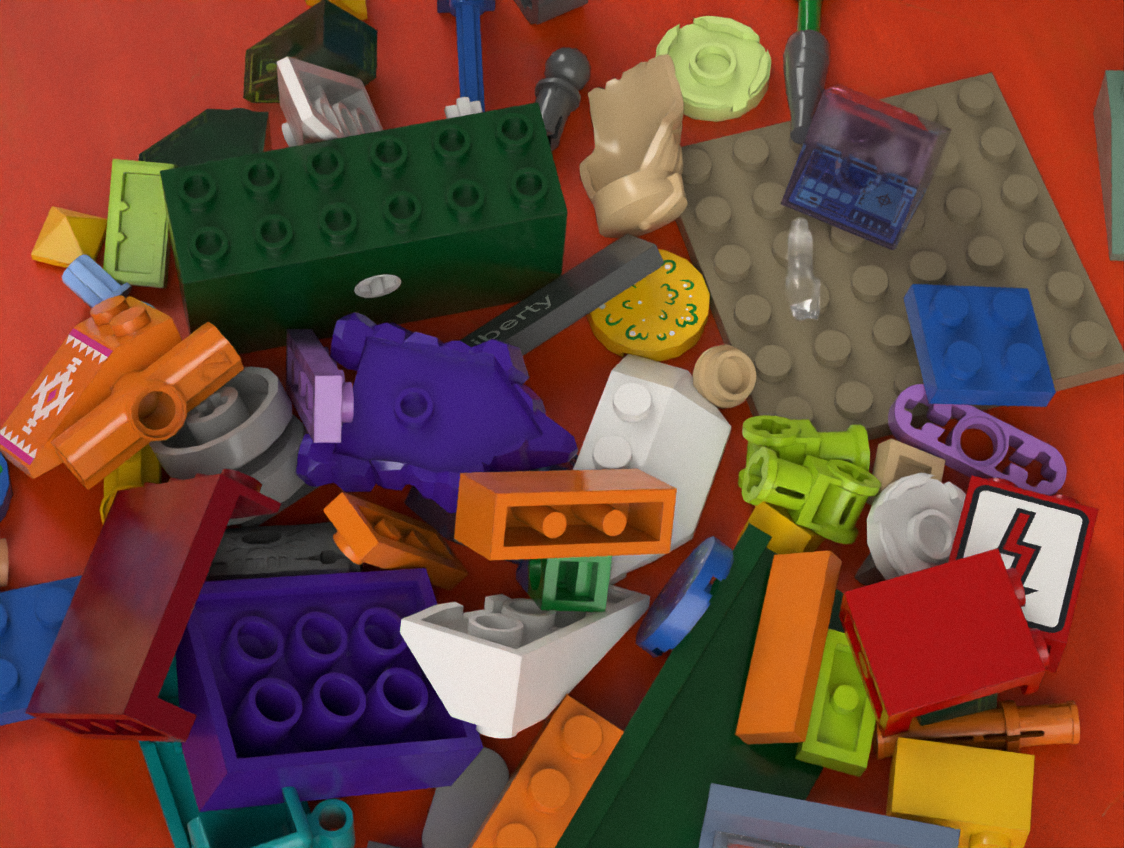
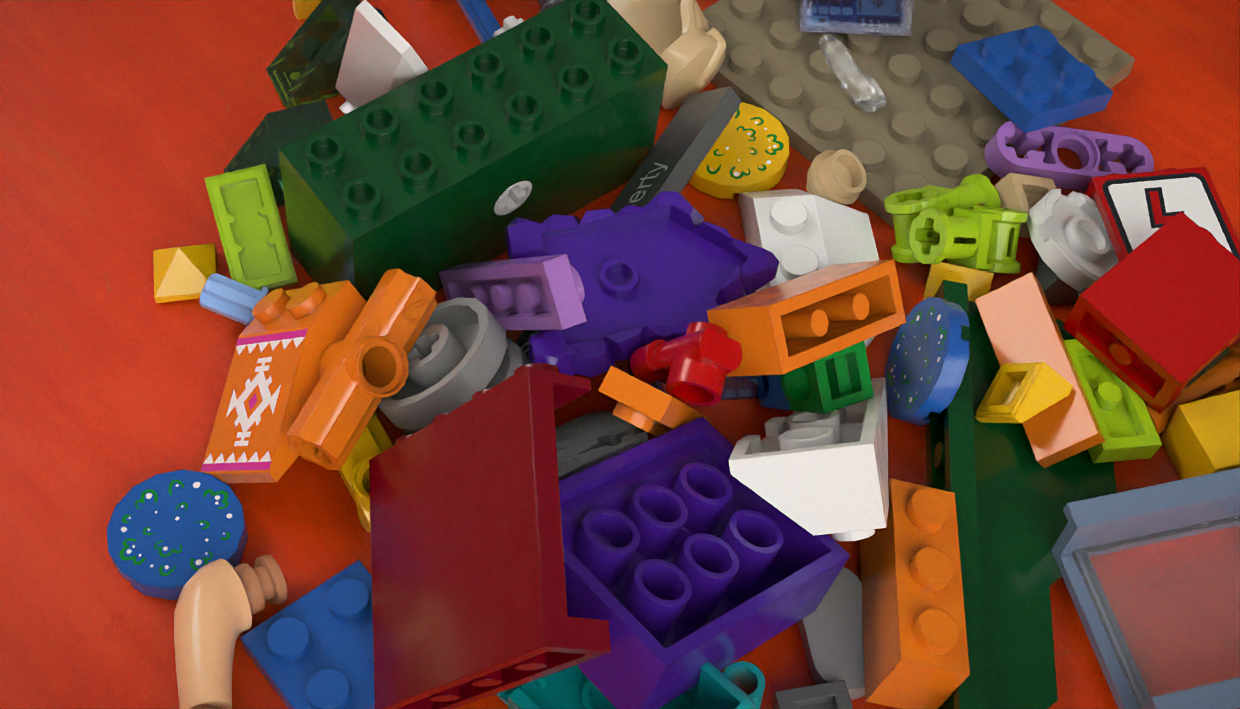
camera: 25 degrees left, 5 degrees down
(421, 517) = (690, 365): none -> red plate
(750, 665) = (1021, 392): none -> yellow slope

